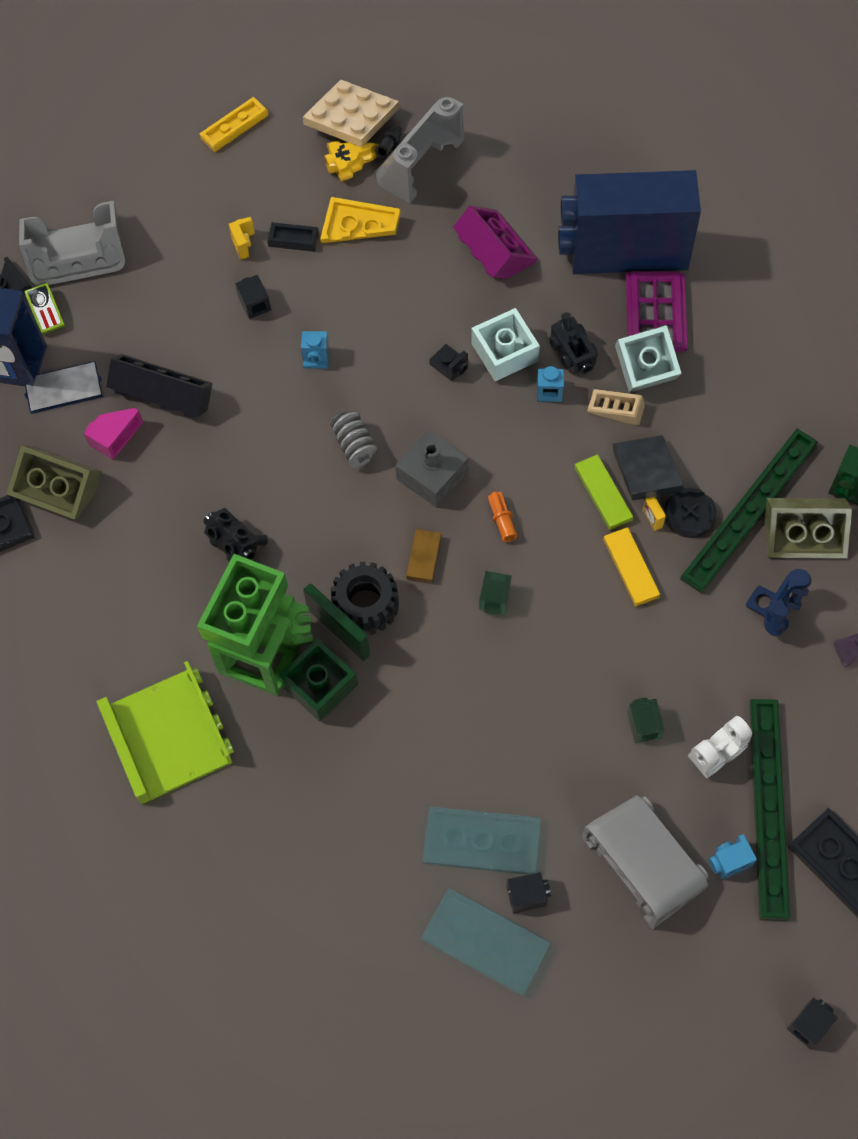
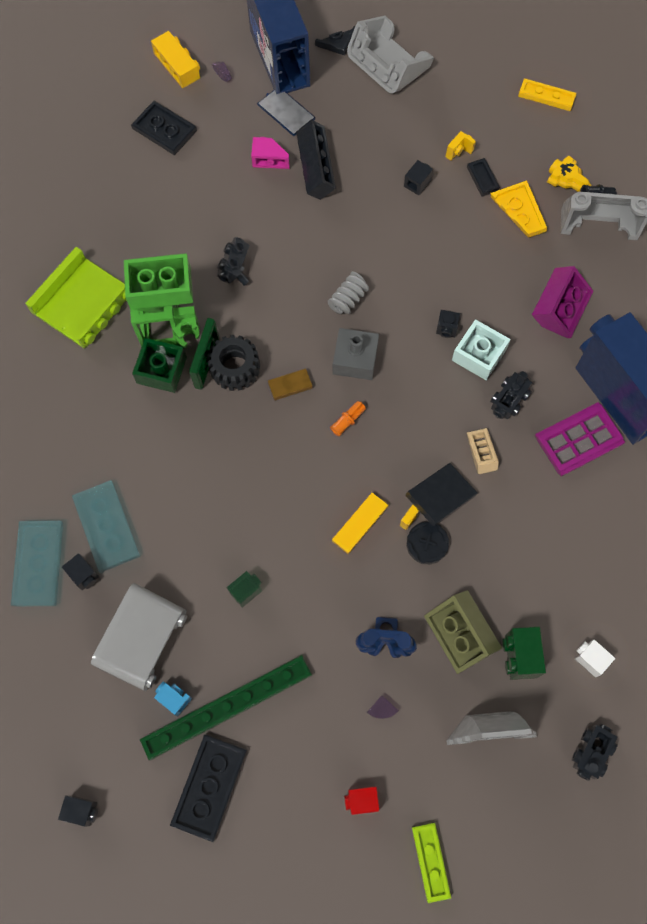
camera: 60 degrees right, 5 degrees up
(44, 308) = (332, 67): slope -> none
(53, 481) = (213, 141): olive slope -> none
(315, 349) = (402, 235): dark azure brick -> none
(351, 113) = (604, 156): tan plate -> none
(495, 593) = (285, 442): clear green brick -> none
(550, 379) = (469, 396): dark azure brick -> none
(603, 492) = (407, 475): lime tile -> none
(648, 359) = (529, 450): light aqua brick -> none
(722, 747) = (246, 649): white piece -> none
(748, 511) = (455, 583): dark green tile -> none

